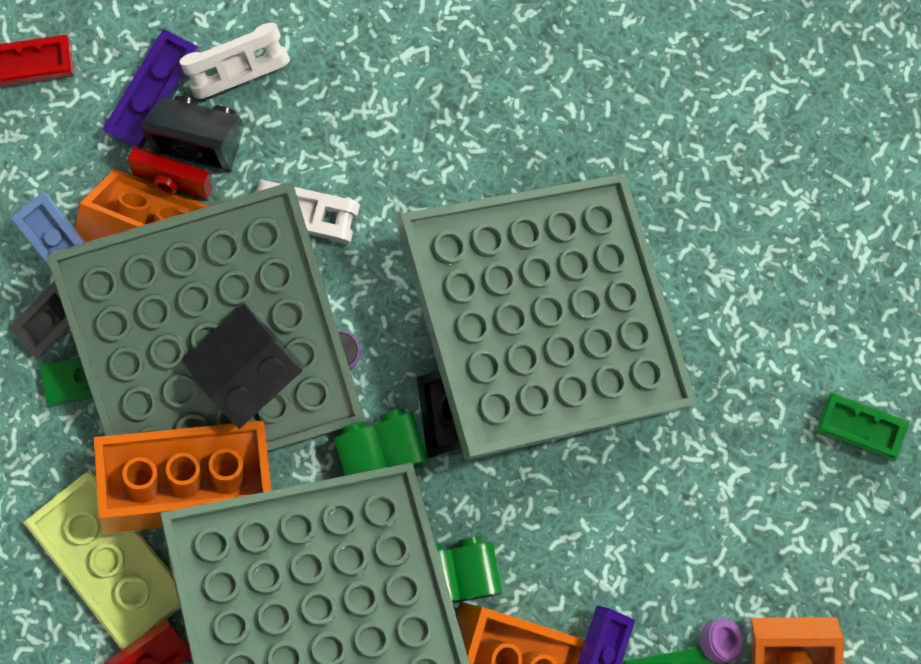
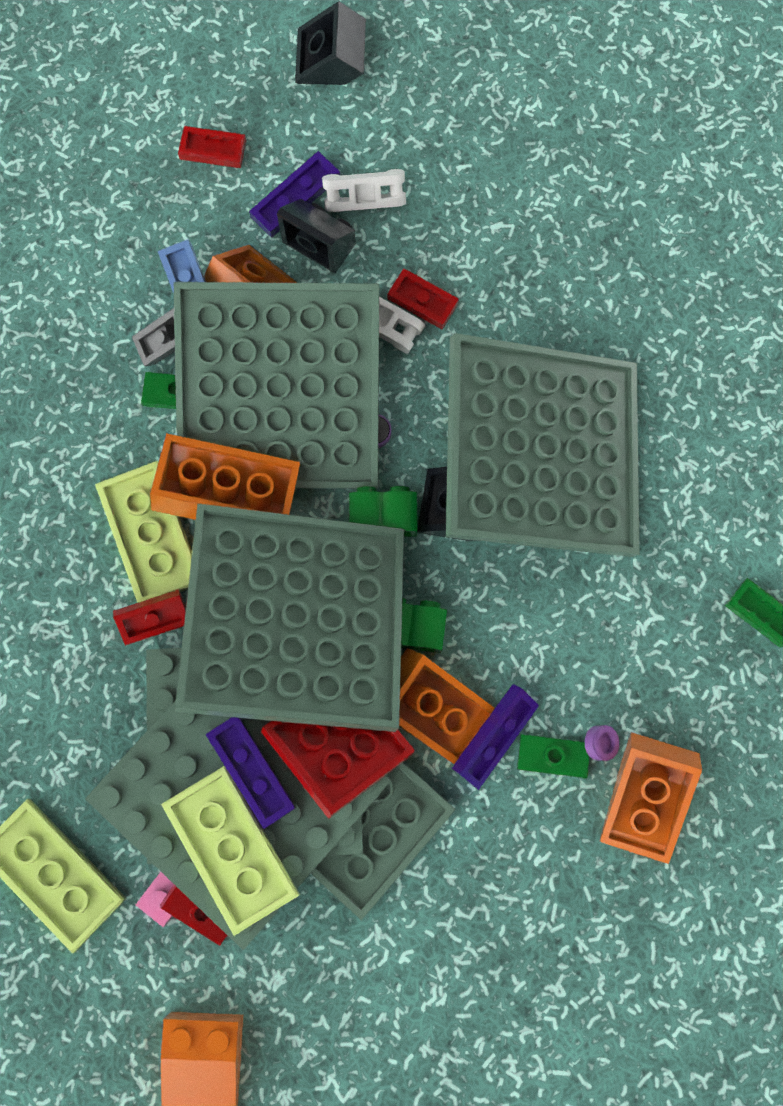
camera: 15 degrees right, 0 degrees up
(170, 174) = (288, 259): red plate -> none
(242, 365) = (296, 413): black slope -> none
(346, 172) = (423, 298): none -> red plate

